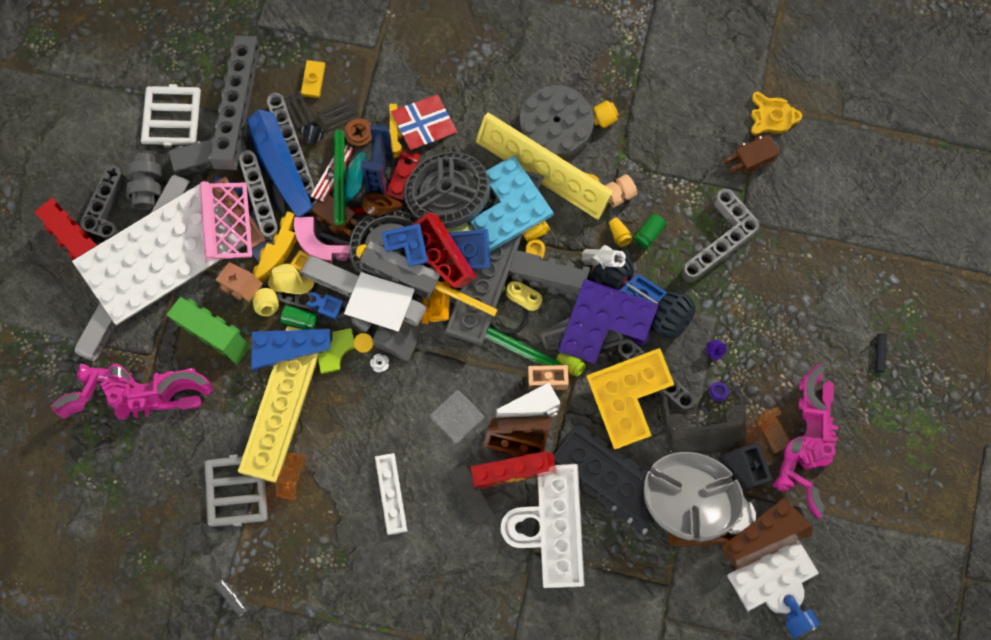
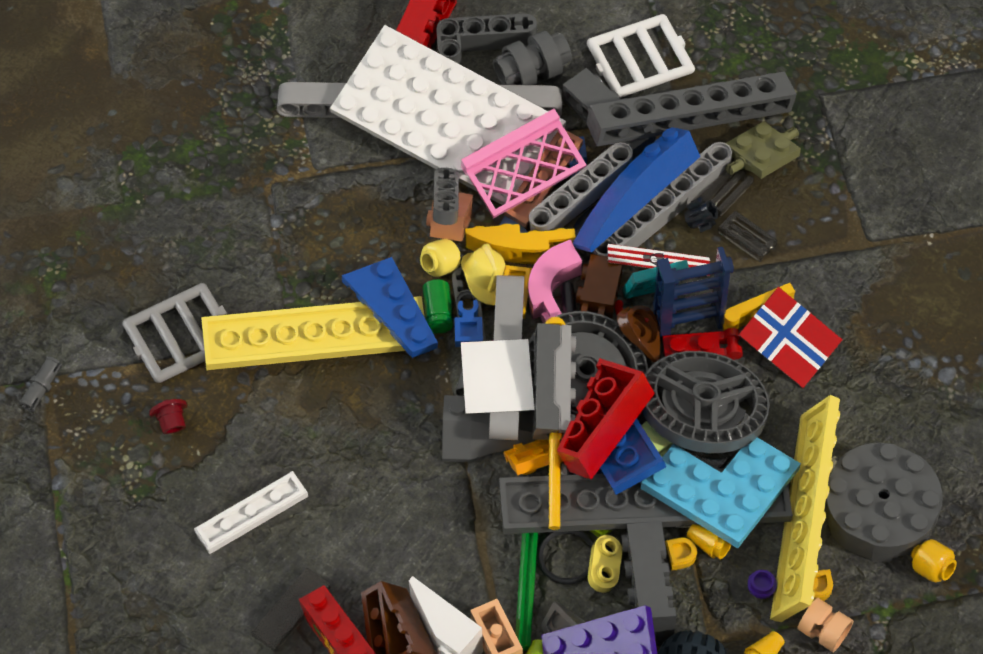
camera: 70 degrees right, 15 degrees down
(129, 396) = (251, 148): dark pink piece -> none
(209, 329) = (372, 212): bright green wedge -> none
(228, 275) = (446, 196): none -> dark grey beam
(283, 75) = (762, 150): none -> olive plate
(289, 475) = (223, 379): clear orange bracket -> none
(299, 519) = (170, 415): none -> dark red piece
(313, 79) = (780, 187): yellow plate -> none
(339, 177) = (621, 276): green axle -> none
(341, 343) = (429, 371): lime tile -> none
(361, 125) = (746, 269): dark orange gear -> none
(363, 343) = (437, 391): yellow tile -> none
(383, 366) = (423, 432): white plate -> none
(410, 239) = (594, 368): blue plate -> none
(457, 416) = (391, 548): clear plate -> none
(576, 213) = (762, 584): none -> dark purple plate
(604, 256) = (703, 633): white piece -> none

